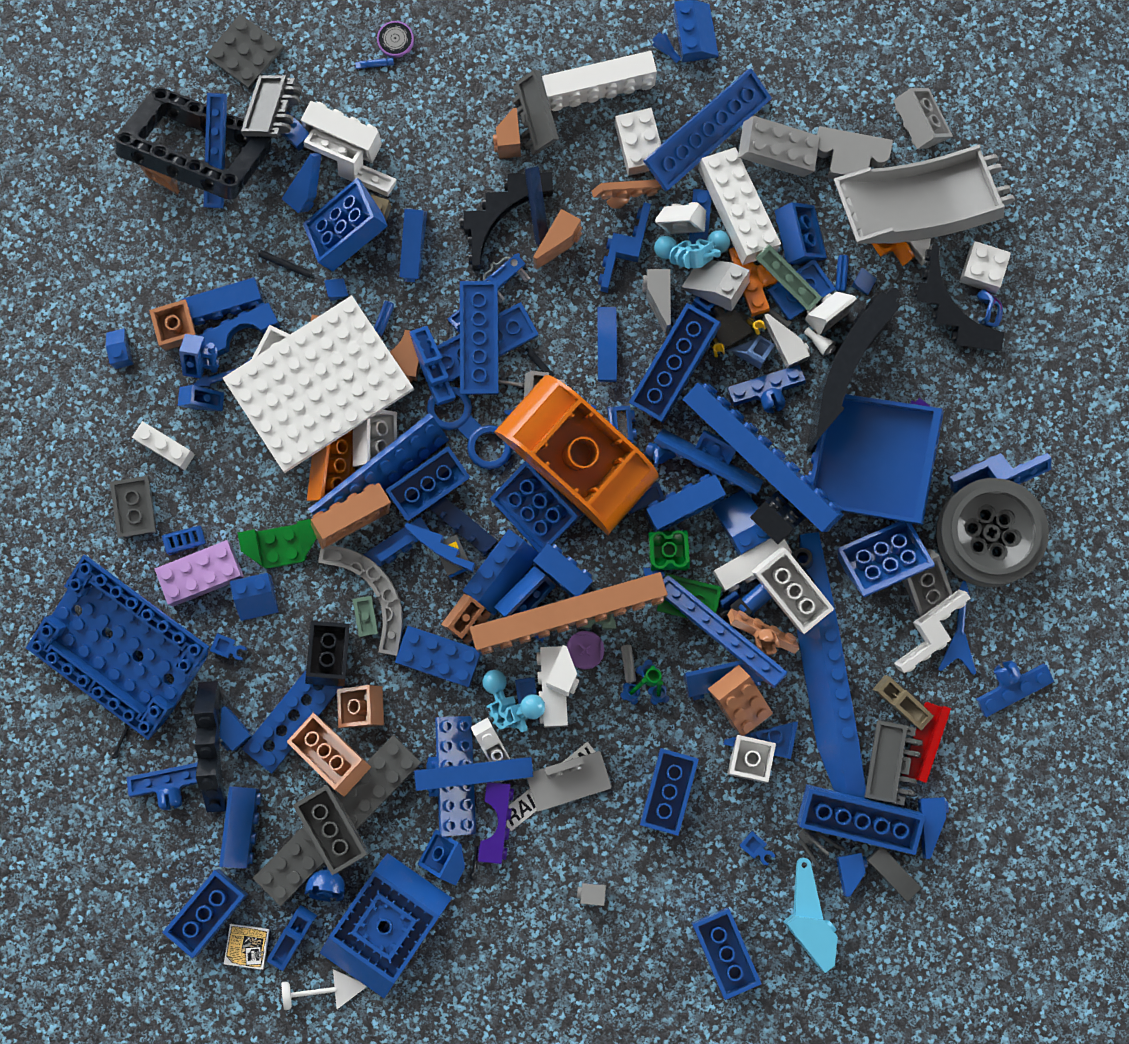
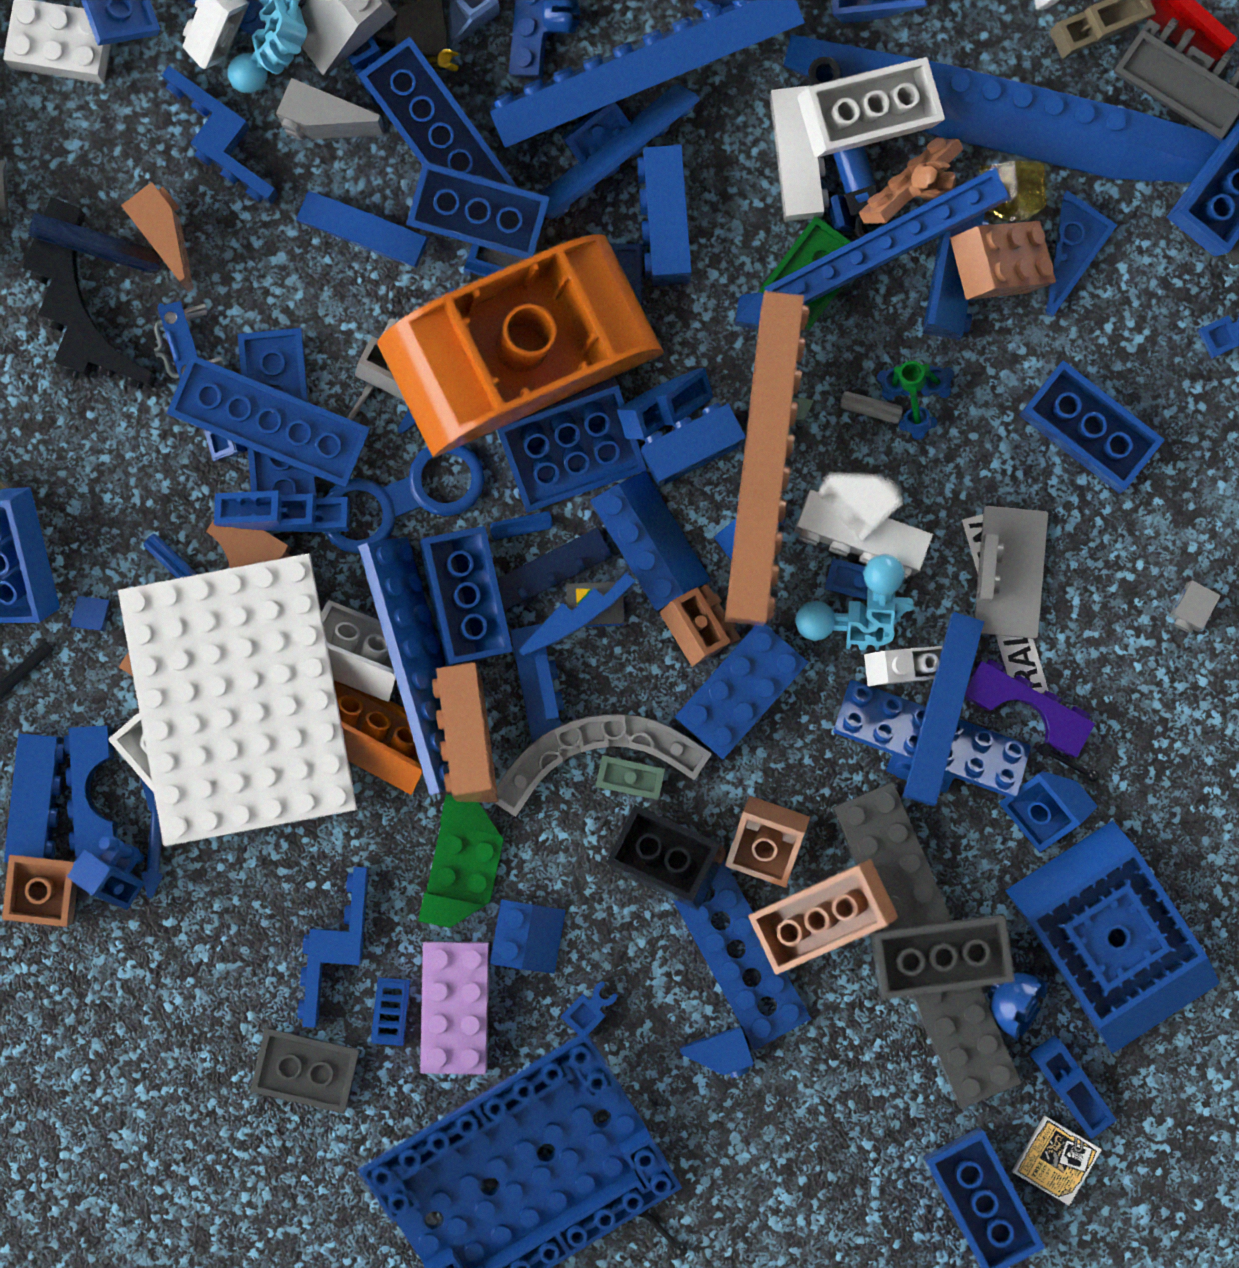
camera: 65 degrees left, 5 degrees up
(118, 349) = (39, 994): blue slope -> none
(163, 445) = (227, 984): white brick -> none
(164, 783) = (760, 1184): blue plate -> none
(200, 398) = (176, 897): blue slope -> none
(207, 494) = (334, 946): none -> blue bracket
(208, 746) = (731, 1095): black arch -> none
(239, 827) = (875, 1098): blue slope -> none
(344, 989) = (1181, 1037): white piece -> none
(412, 244) = (72, 463): blue slope -> none
(480, 498) = (521, 525): none -> blue axle
(525, 593) = (702, 518): blue brick -> none
(540, 364) = (343, 347): black wheel -> none
(580, 548) = (665, 404): none -> blue slope
(585, 649) = (818, 458): medium lavender tile -> none
(622, 191) = (132, 107): nougat plate -> none
(640, 398) = (477, 210): none -> blue brick
(658, 454) = (568, 225): blue animal -> none
(669, 550) = (727, 270): green piece -> none
(735, 519) = (729, 140): blue slope -> none
(751, 759) = (1094, 282): white slope -> none
(777, 517) = (748, 81): black brick -> none
(787, 694) = (1025, 187): none -> clear yellow slope

